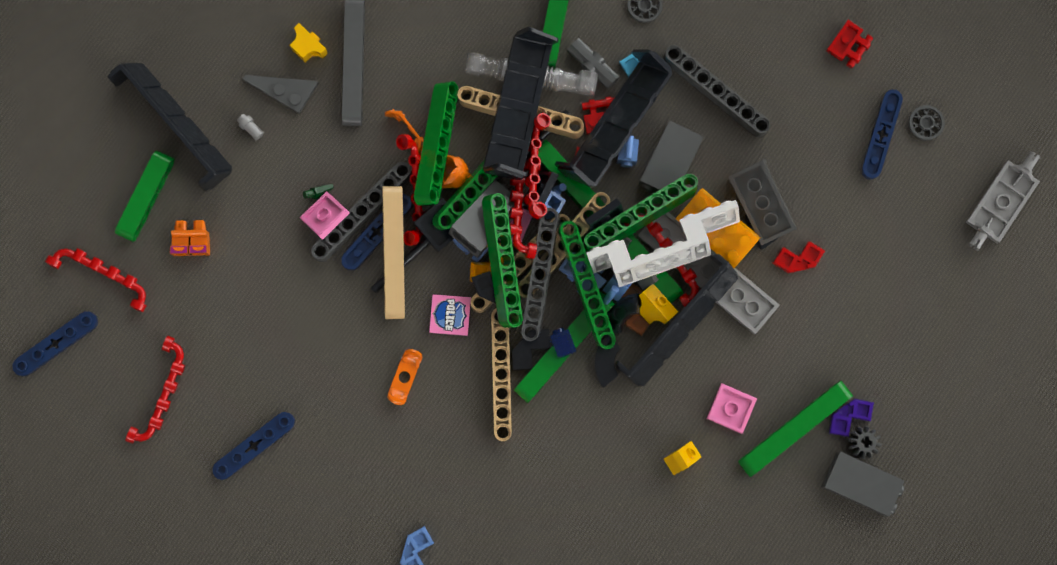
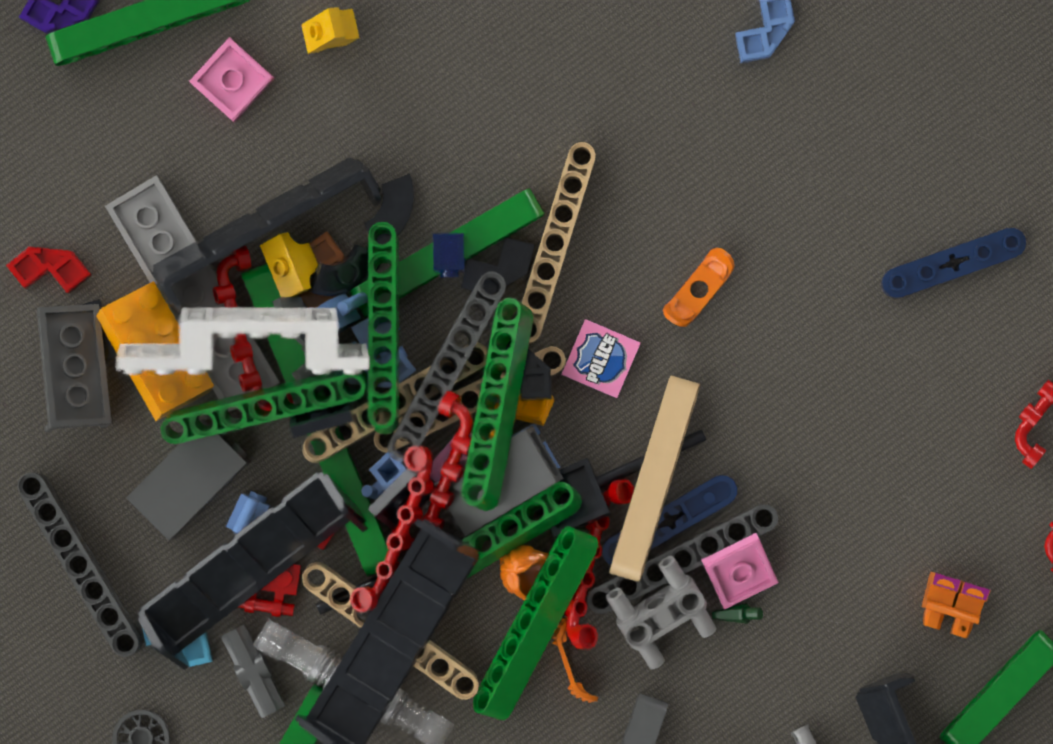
camera: 150 degrees left, 5 degrees up
(363, 175) = (661, 612): none -> light grey piece

